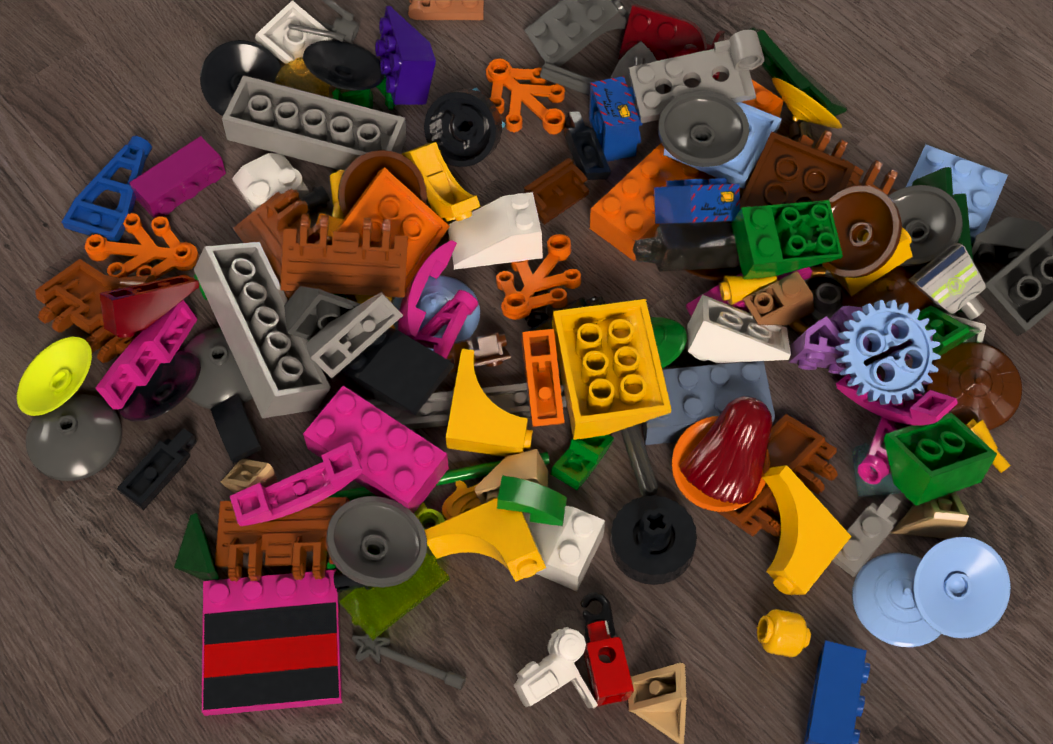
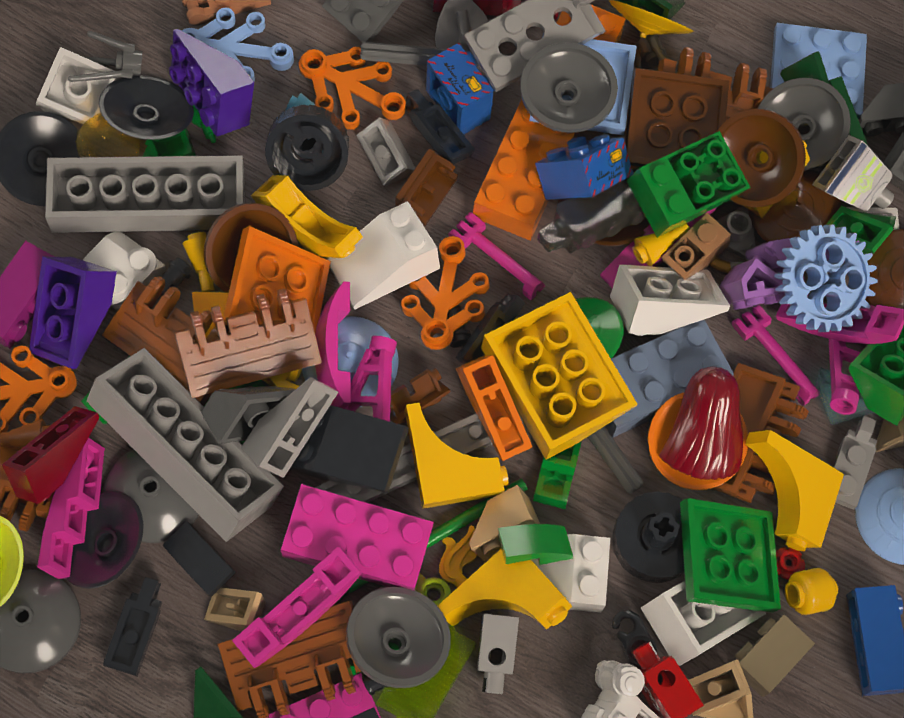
camera: 25 degrees left, 10 degrees up
(213, 195) = (69, 308): none -> dark purple slope
(466, 571) = (500, 633): none -> light grey torso
(473, 57) = (231, 43): none -> light blue plant
(533, 153) = (386, 151): none -> light grey slope
(585, 241) = (473, 235): none -> dark pink hinge
(671, 617) = (693, 627): none -> white slope
(713, 573) = (729, 556): none -> green plate
(724, 678) = (773, 654): none -> dark tan brick
(766, 594) = (794, 556): none -> red plate
(816, 392) = (758, 329): none -> dark pink hinge

